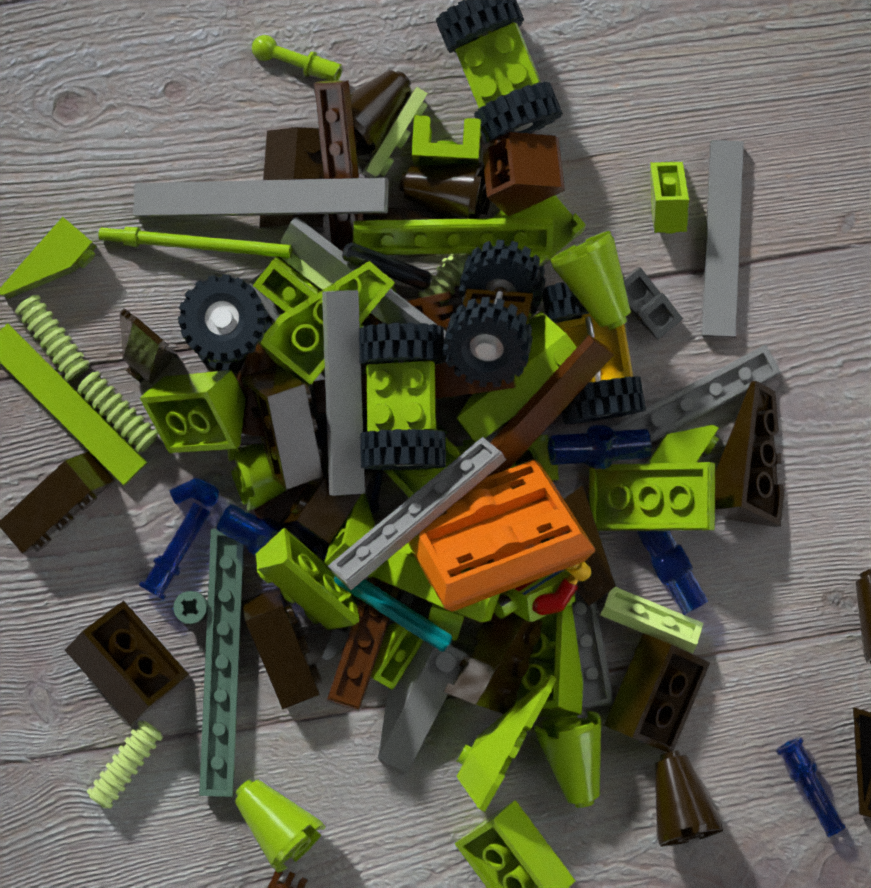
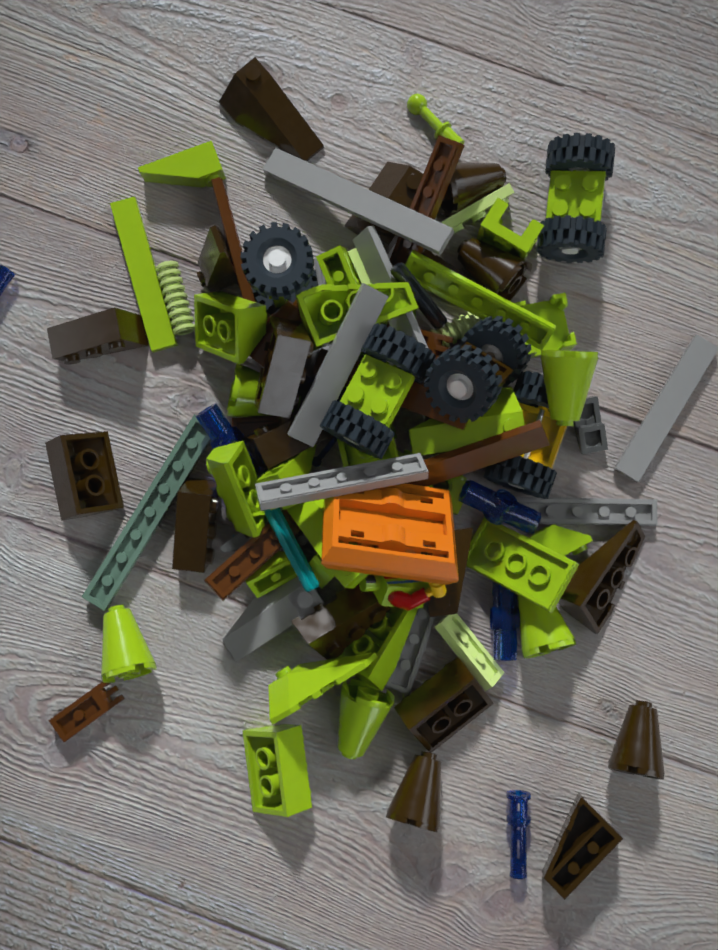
camera: 35 degrees right, 0 degrees up
(52, 337) = (159, 222): yellowish green piece -> none
(96, 146) = (261, 105): none -> dark brown wedge
(124, 764) = (42, 546): yellowish green piece -> none
(134, 237) = (255, 185): lime bar -> none
(147, 314) = (232, 236): none -> reddish brown tile
(168, 564) = (151, 422): clear blue pin -> none
(195, 604) = (153, 464): sand green wheel -> none
(196, 489) = (200, 382): clear blue arm -> none
(522, 170) = (553, 279): reddish brown slope -> none
(669, 197) = (644, 359): lime slope -> none
(718, 554) = (542, 630): none -> lime cone

